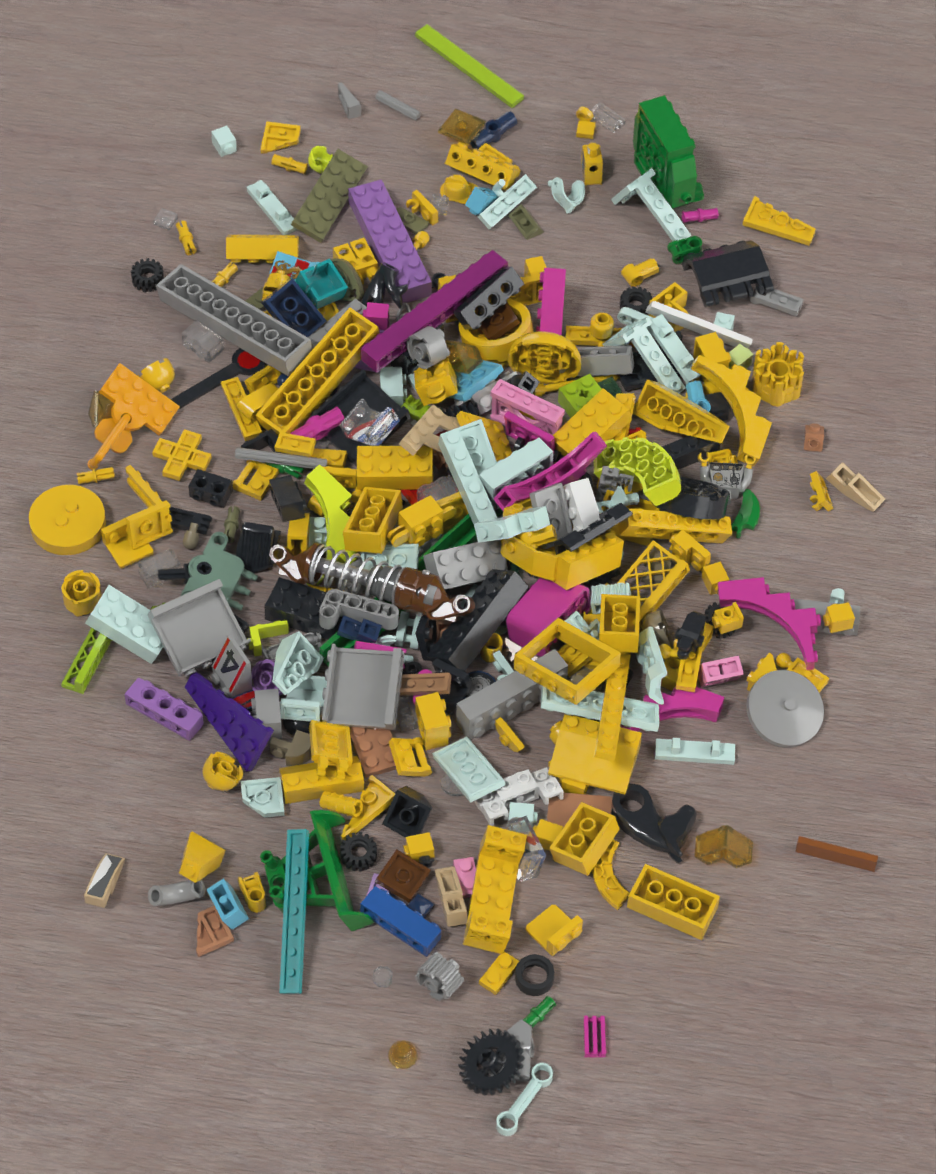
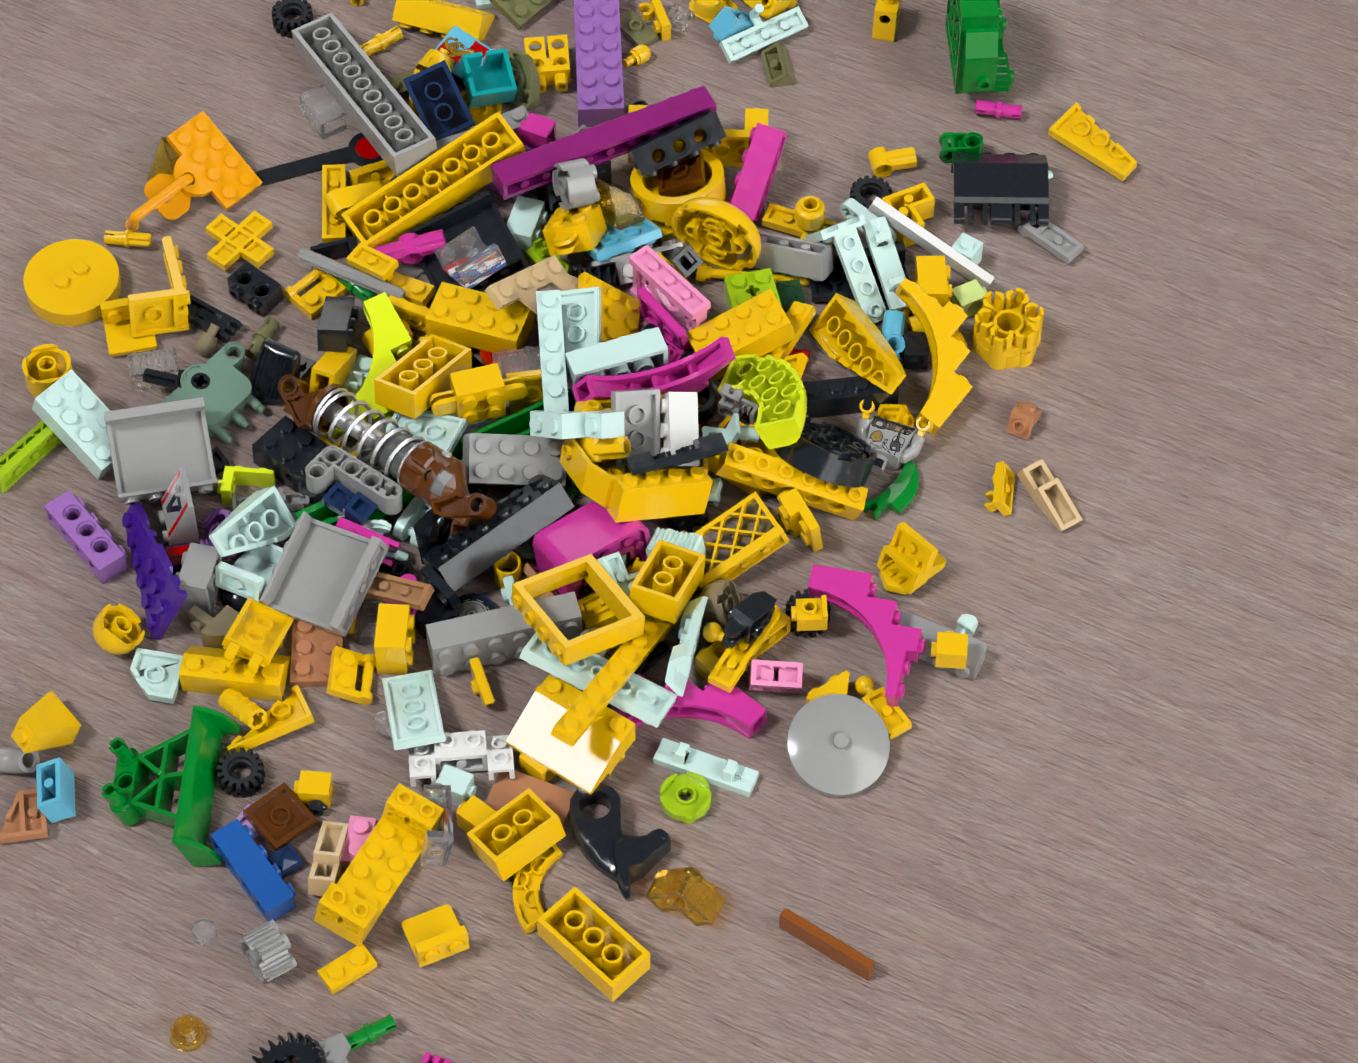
camera: 20 degrees right, 0 degrees up
(159, 375) = (250, 139): yellow cylinder -> none
(252, 889) = (92, 781): yellow piece -> none
(294, 911) = (124, 821): teal plate -> none
(384, 279) = (564, 94): black piece -> none
(407, 812) = (318, 740): black slope -> none
(534, 989) = (381, 966): black tyre -> none
(573, 200) = (847, 53): light aqua helmet -> none
(656, 204) = (943, 81): light aqua bracket -> none
(690, 787) = (687, 810): none -> lime plate
(712, 575) = (822, 554): yellow brick -> none
(778, 561) = (908, 561): none -> yellow piece

